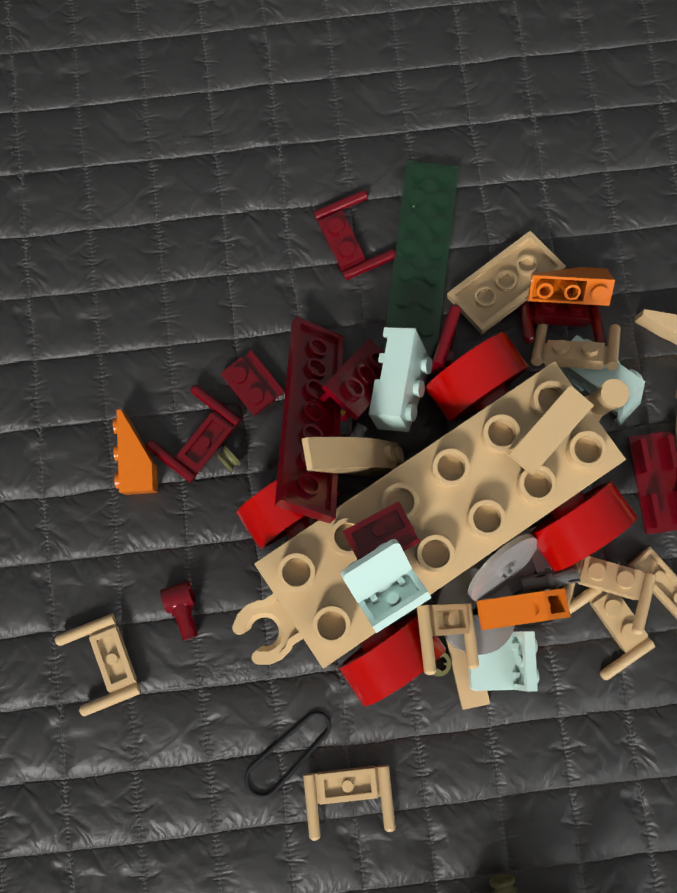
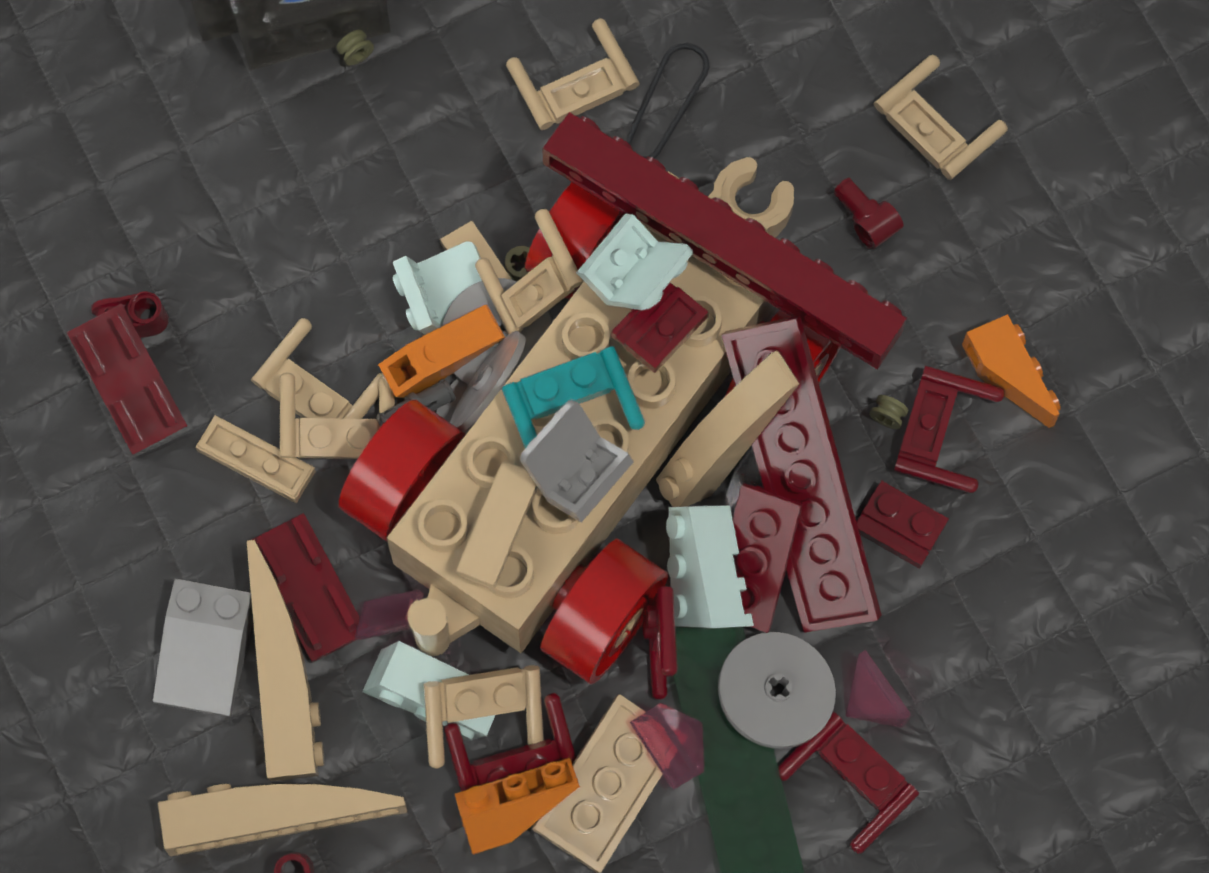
camera: 160 degrees right, 10 degrees down
(311, 589) = (724, 240): none -> dark red brick
(318, 277) = (873, 696): none -> clear pink slope
(363, 285) = (788, 717): none -> light grey piece
(457, 286) = (673, 742): none -> clear pink slope
(466, 516) = (574, 380): none -> teal plate
(484, 447) = (573, 462): none -> light grey bracket
(620, 432) = (386, 615): none -> clear pink slope

